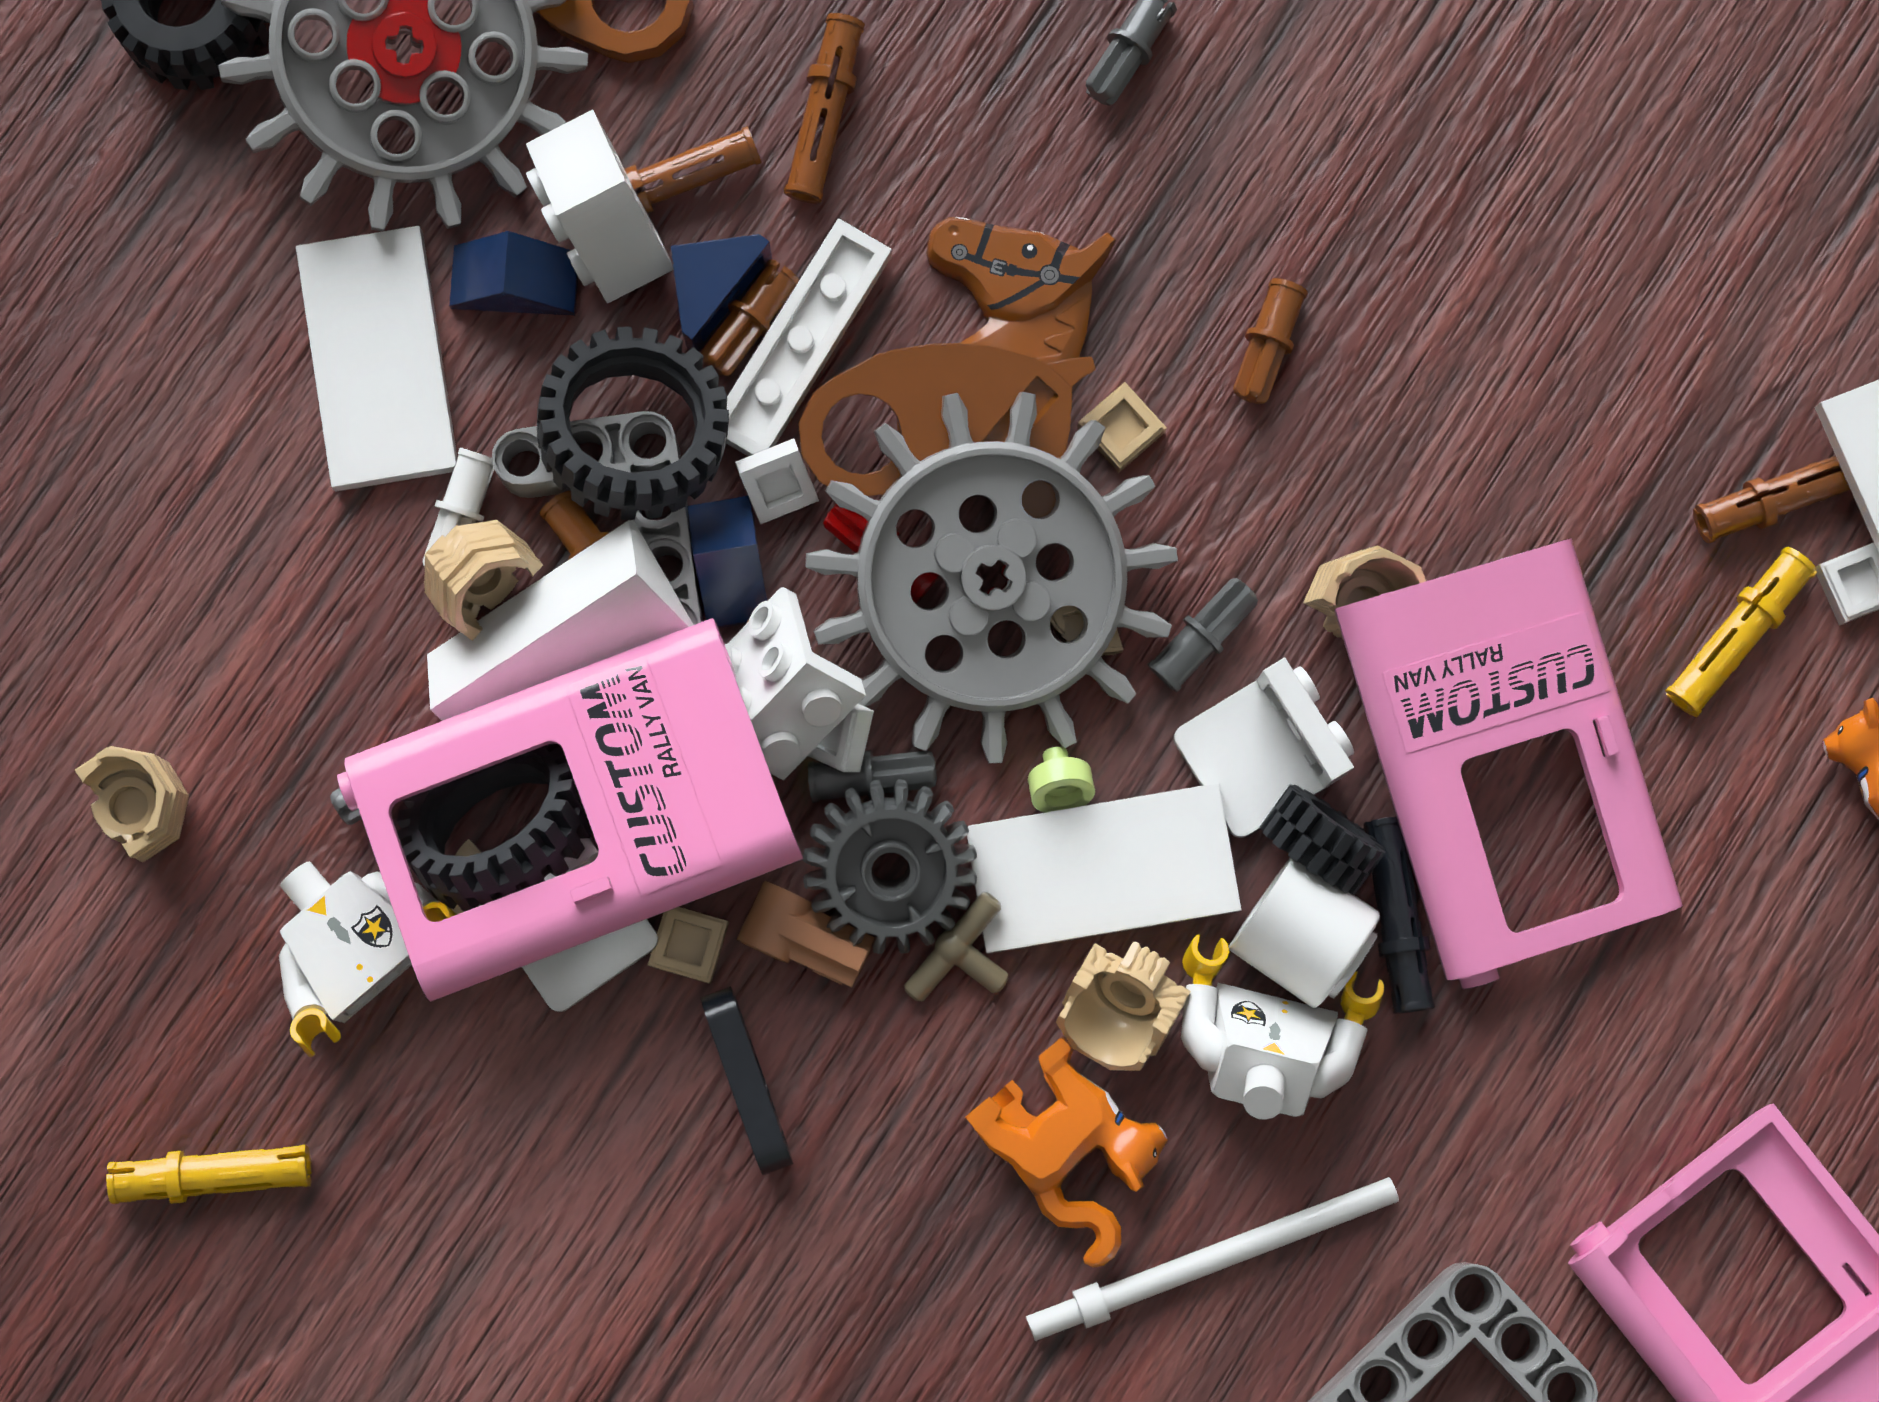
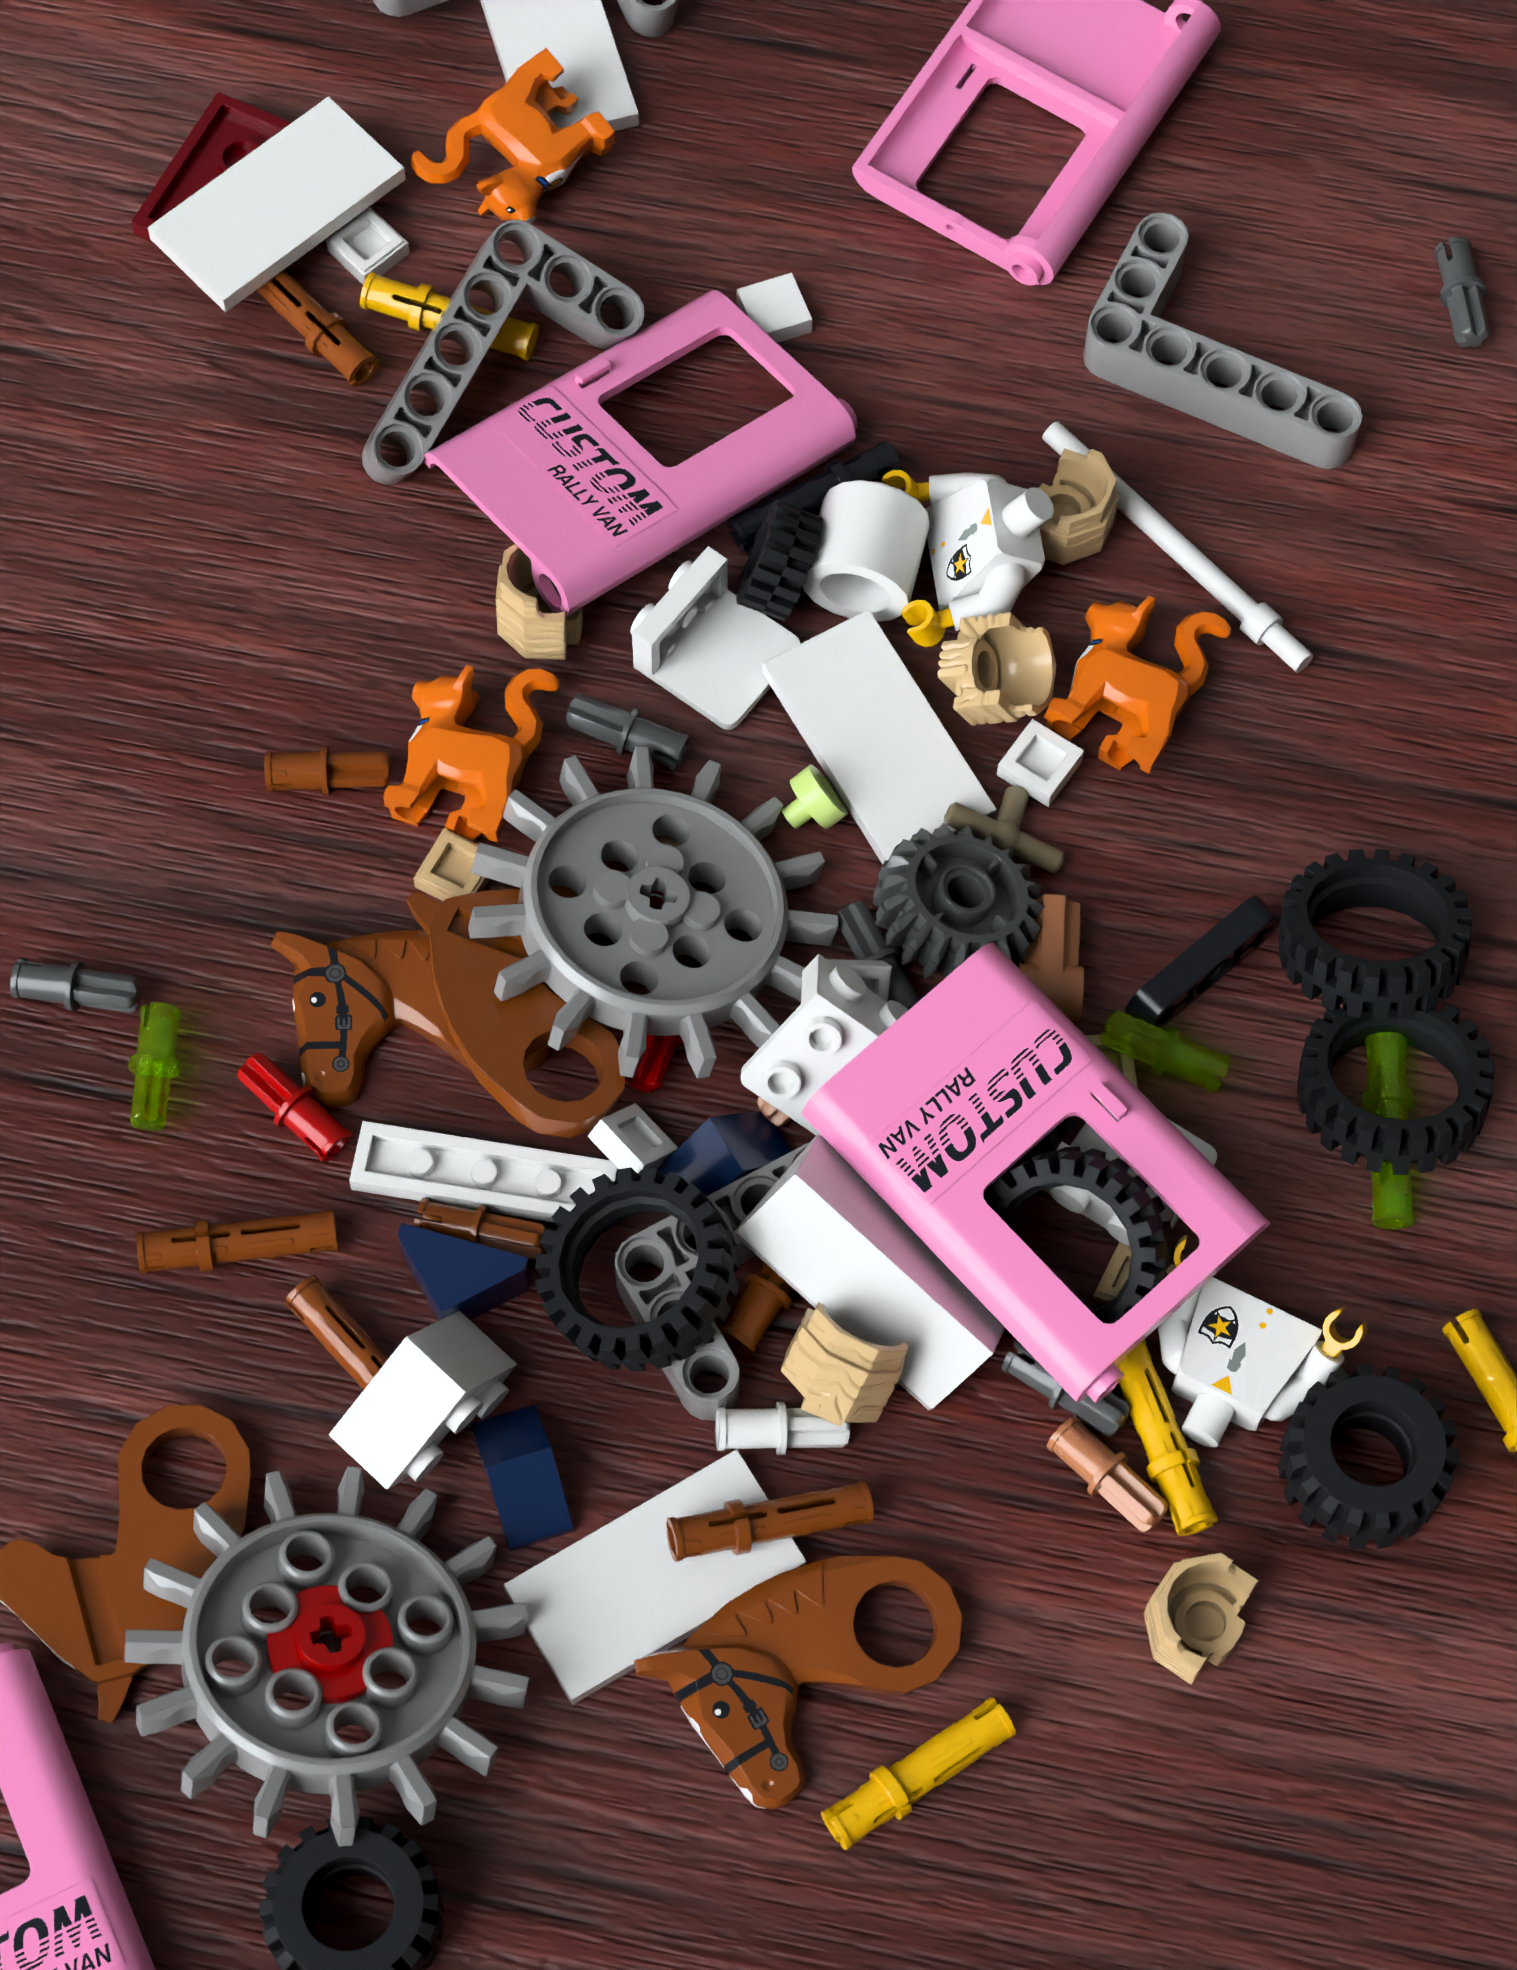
camera: 110 degrees left, 15 degrees down
(110, 509) = (896, 1788): none -> yellow pin
(154, 1005) = (1390, 1410): none -> black tyre
(275, 451) = (797, 1628): none -> dark orange animal
(289, 841) = (1169, 1457): none -> yellow pin
(297, 780) = (1108, 1474): none -> nougat axle
(383, 387) = (746, 1525): none -> dark orange pin
(502, 1179) = (1389, 1098): none -> clear neon green pin
(598, 1264) = (1387, 1138): none -> black tyre
(671, 1005) = (1164, 1050): none -> clear neon green axle
(767, 1283) = (1365, 982): none -> black tyre
(936, 197) = (294, 1107): none -> red axle
(1019, 1015) = (1040, 762): none -> white plate
(1022, 89) = (154, 1064): none -> clear neon green axle
(1226, 467) = (466, 760): none -> orange animal
(1282, 1163) = (1083, 506): none -> tan hair
(1637, 963) = (776, 307): none -> white tile
(1694, 642) = (477, 331): none -> light grey beam

